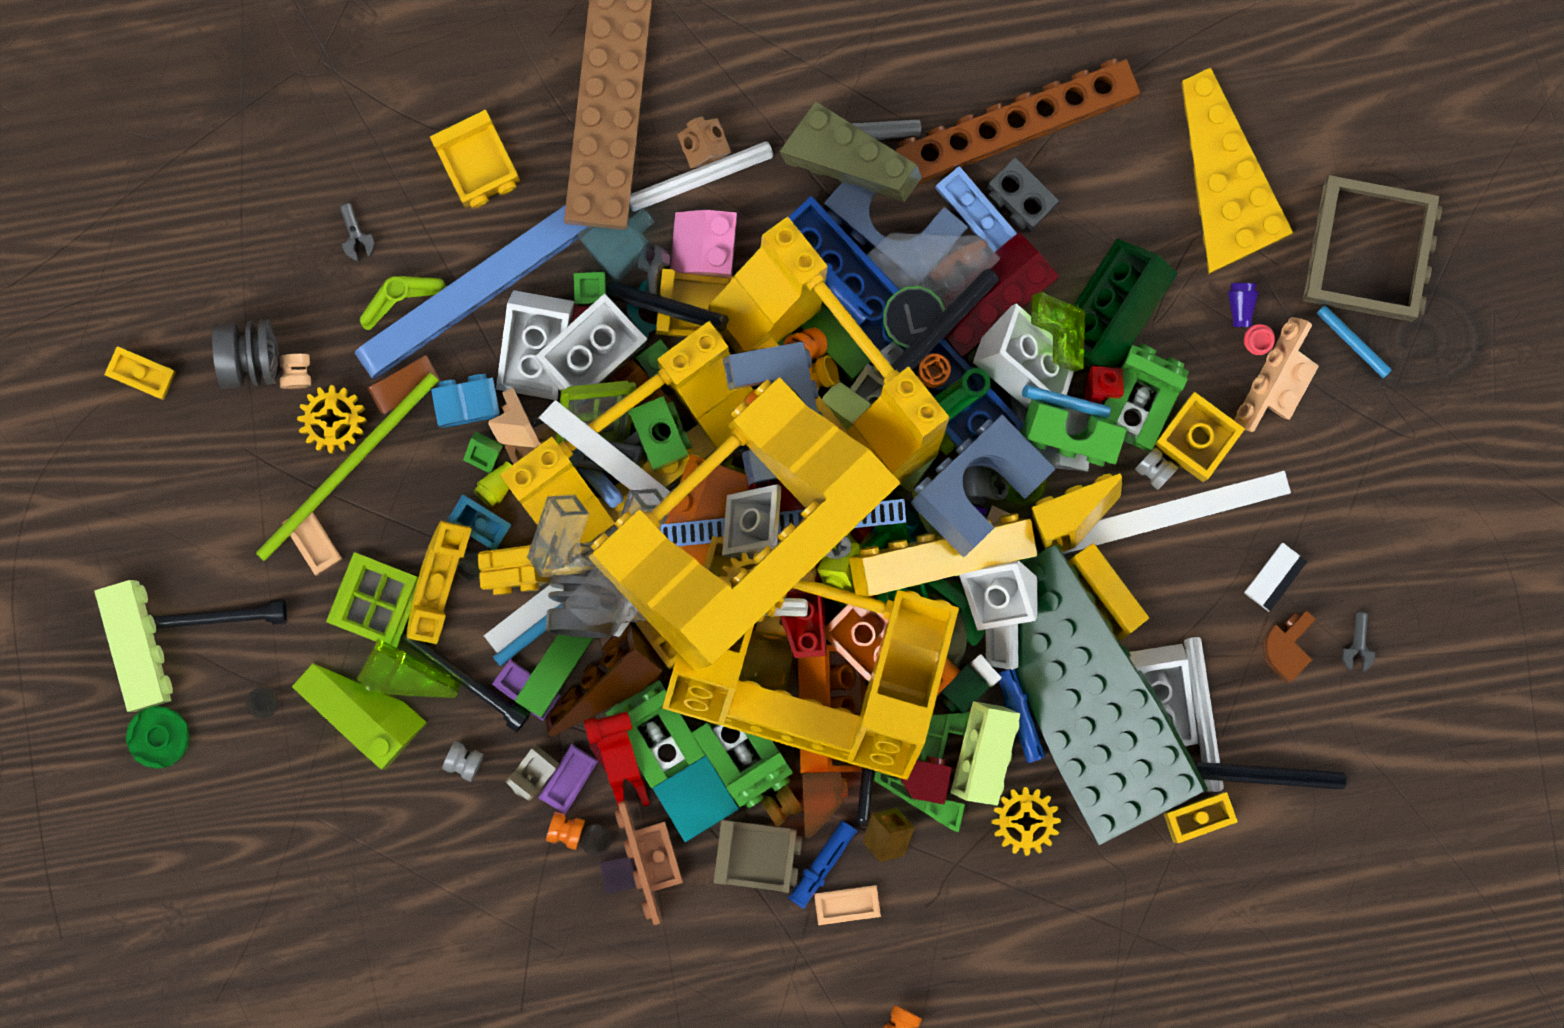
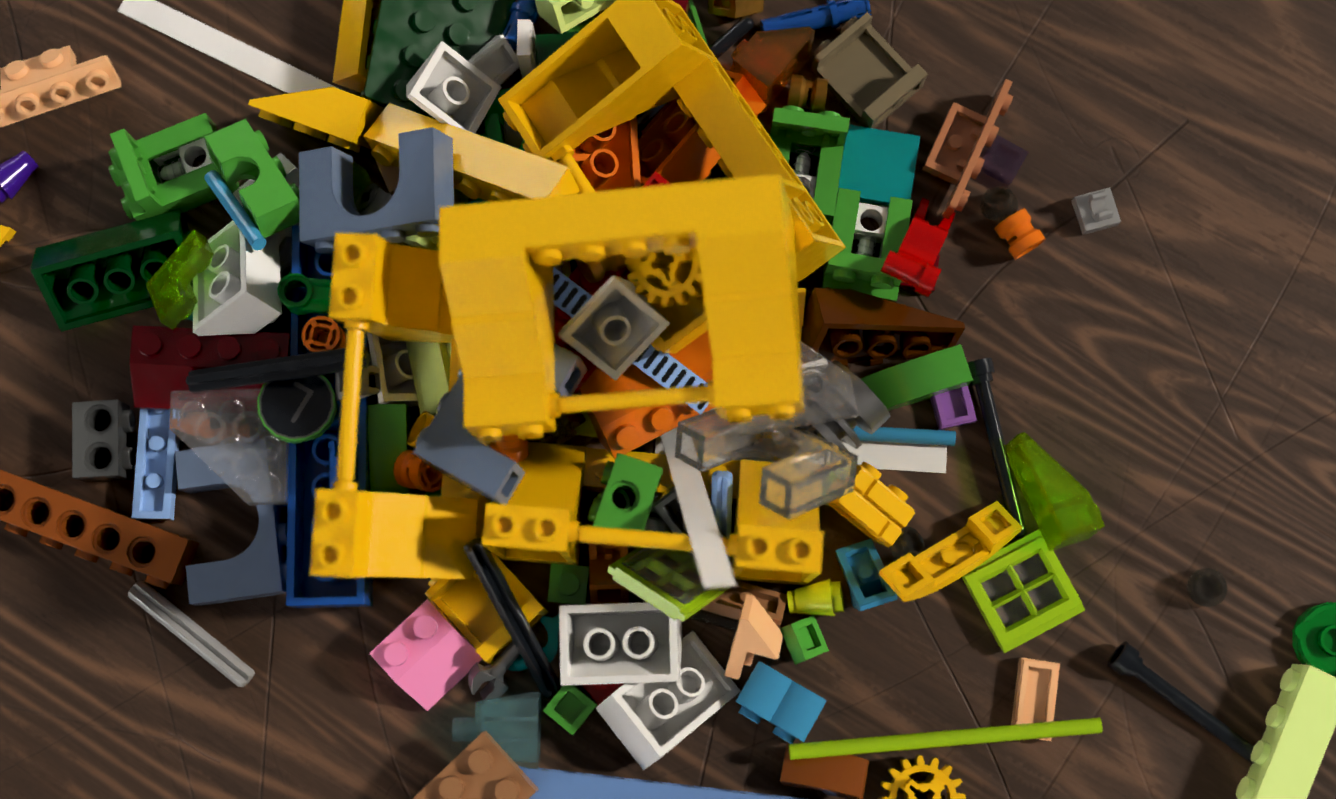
camera: 135 degrees left, 5 degrees down
(368, 719) = (1123, 481): lime wedge -> none
(463, 761) = (1062, 372): light grey wheel -> none
(529, 892) = (1096, 211): none -> light grey tile
(532, 773) = (1008, 308): dark tan bracket -> none
(568, 779) = (977, 279): medium lavender tile -> none
(700, 176) = (371, 723): white axle -> none
(703, 142) = (339, 752): medium nougat brick -> none
(843, 151) = (213, 611): olive wedge -> none
(1103, 384) = (193, 205): red bracket -> none
(1156, 468) = (219, 99): light grey wheel -> none
(1199, 437) = (154, 88): yellow brick -> none
(1259, 339) = (26, 133): coral plate -> none

